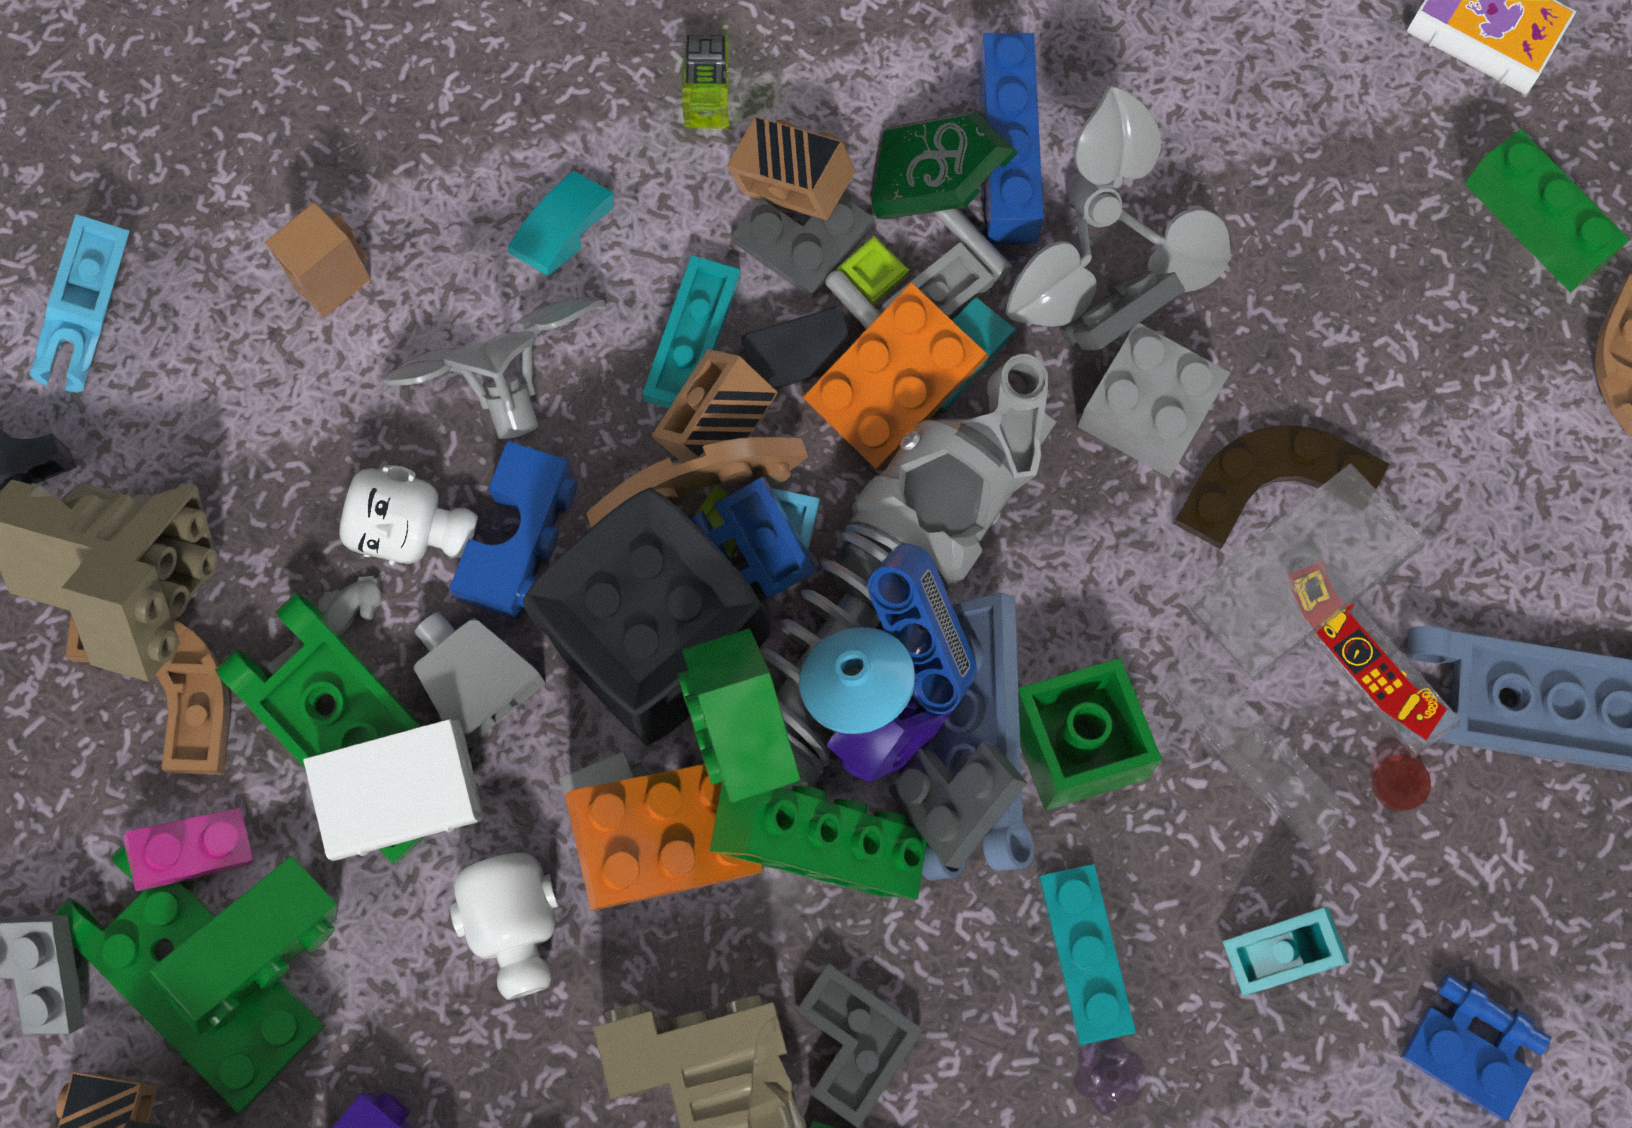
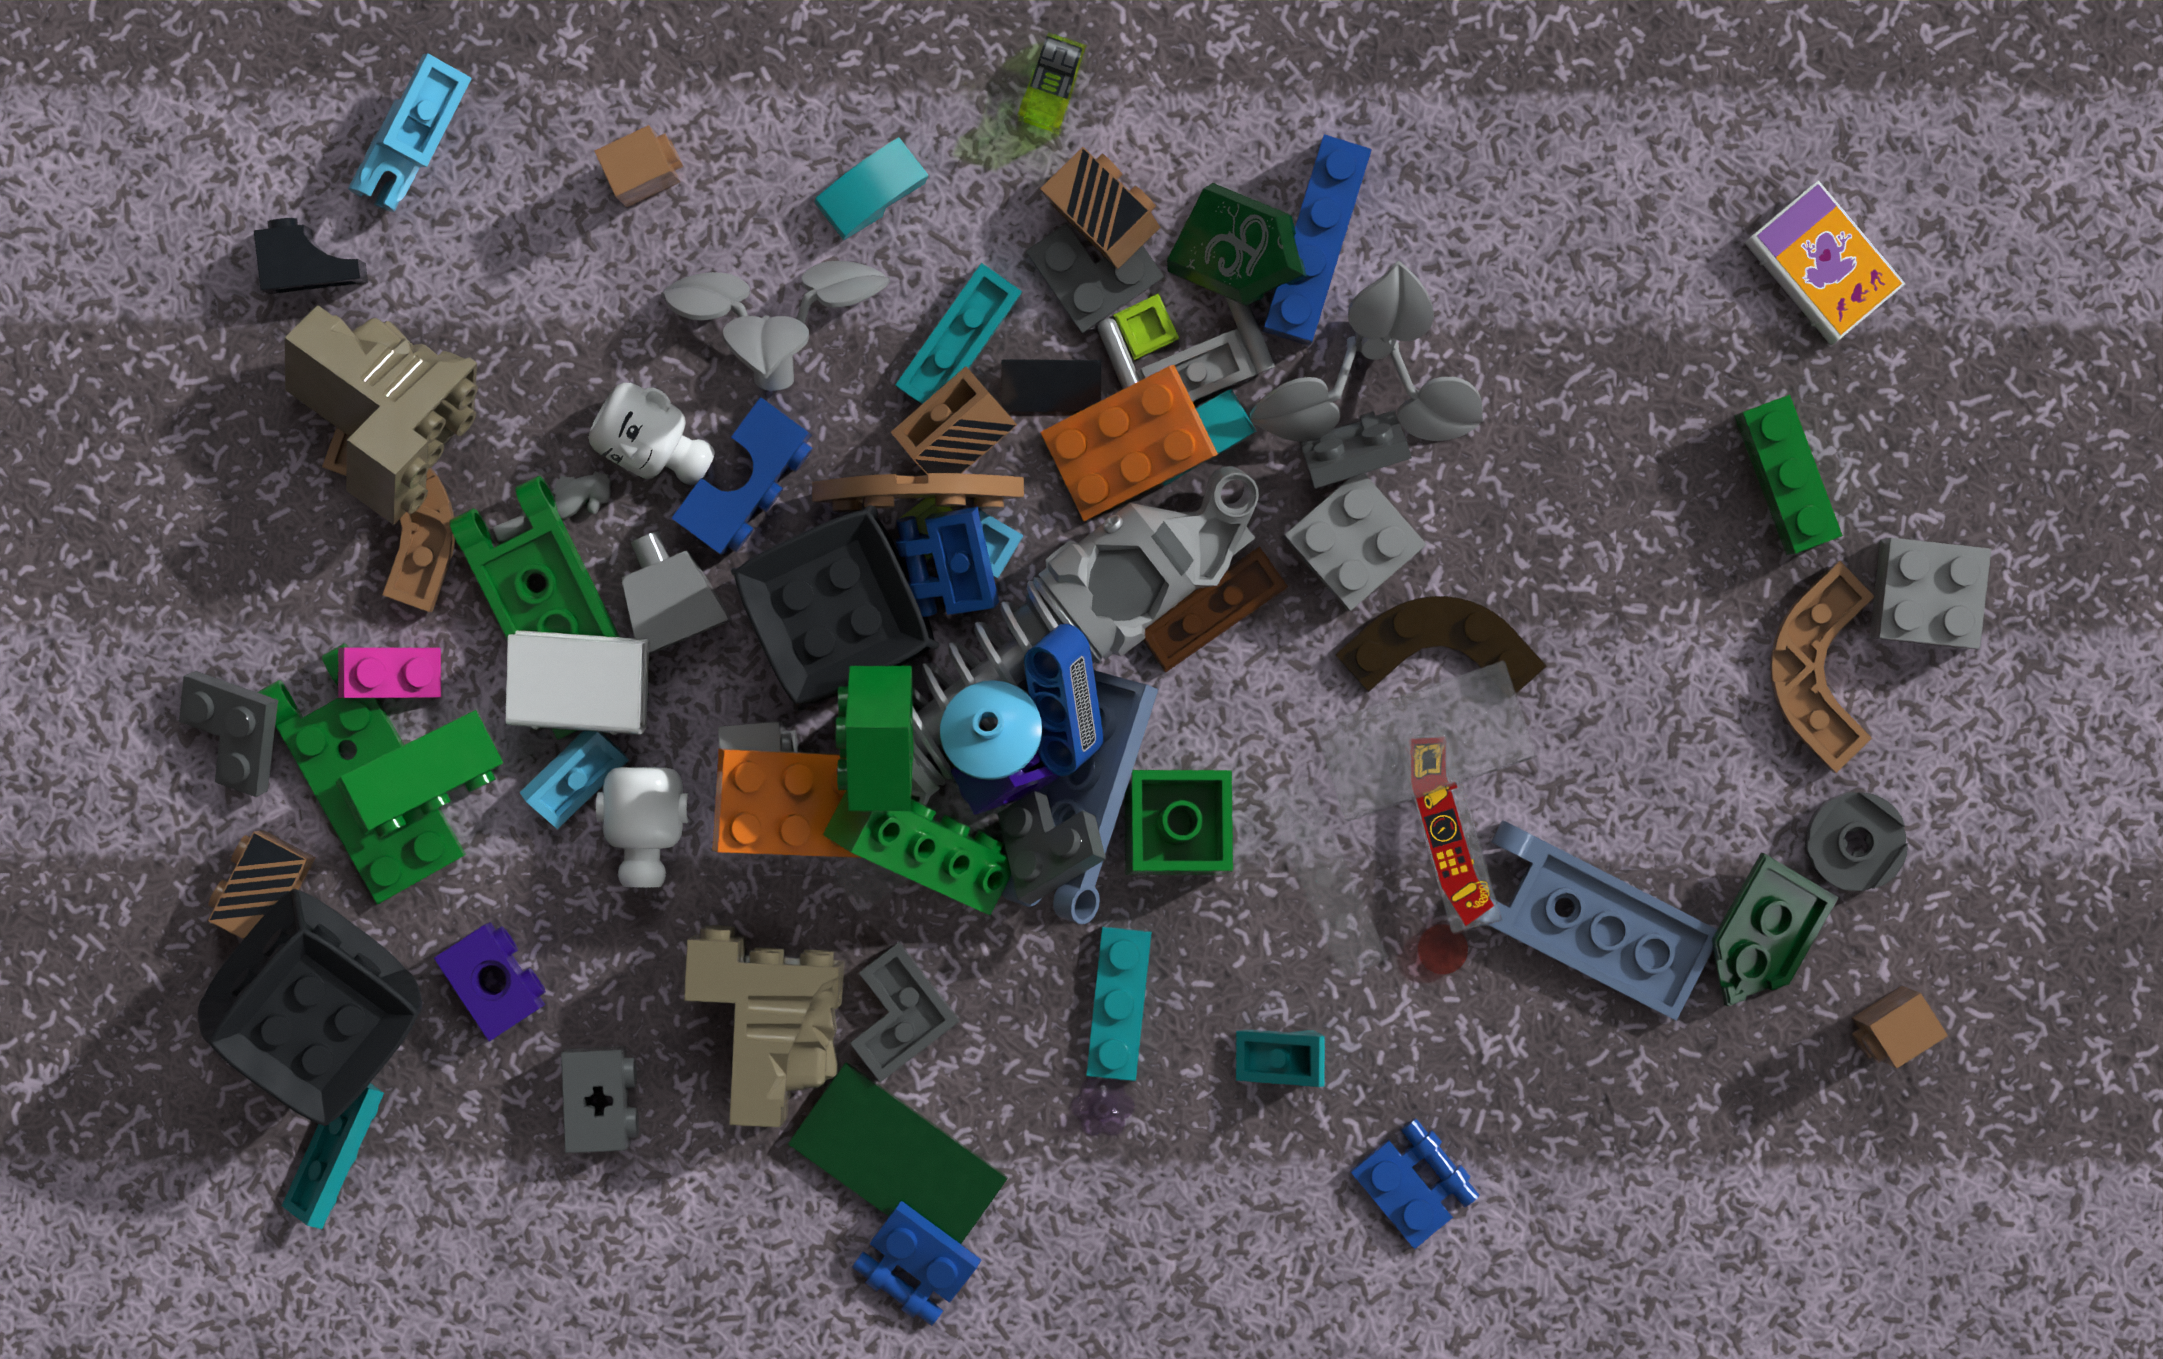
camera: 20 degrees right, 15 degrees up
(419, 898) = (573, 776): none -> medium azure plate
(1035, 516) = (1213, 609): none -> reddish brown tile

